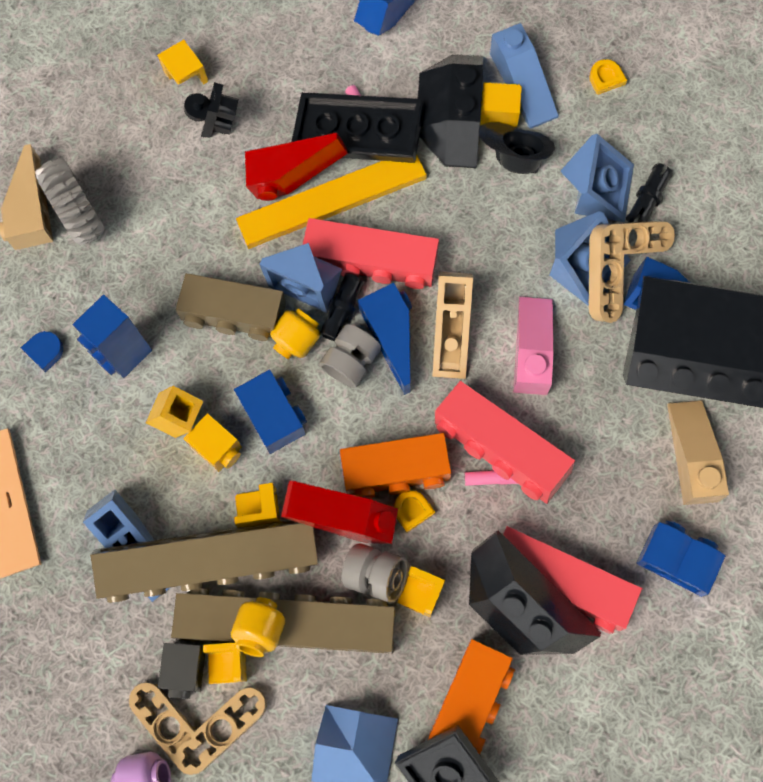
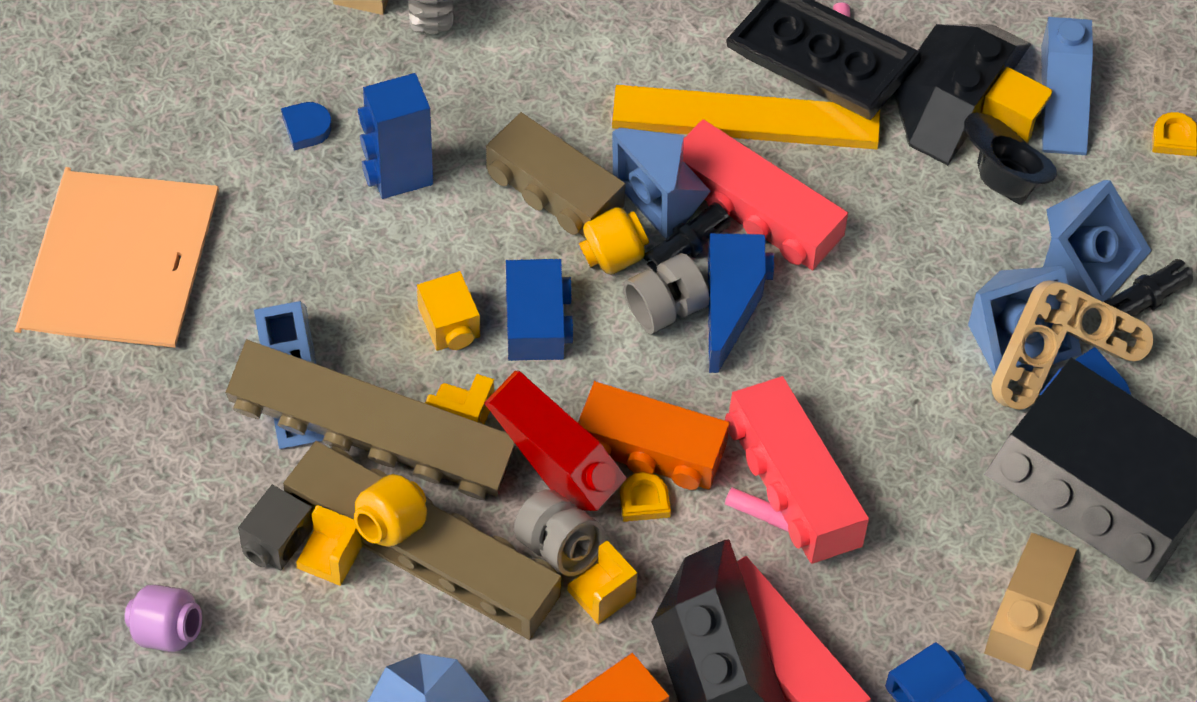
camera: 20 degrees right, 15 degrees down
(174, 412) = (422, 254): yellow brick -> none
(188, 736) = (241, 608): tan beam -> none
(287, 166) = (712, 53): red slope -> none
(452, 325) = (812, 316): tan slope -> none
(534, 346) = (896, 391): bright pink slope -> none

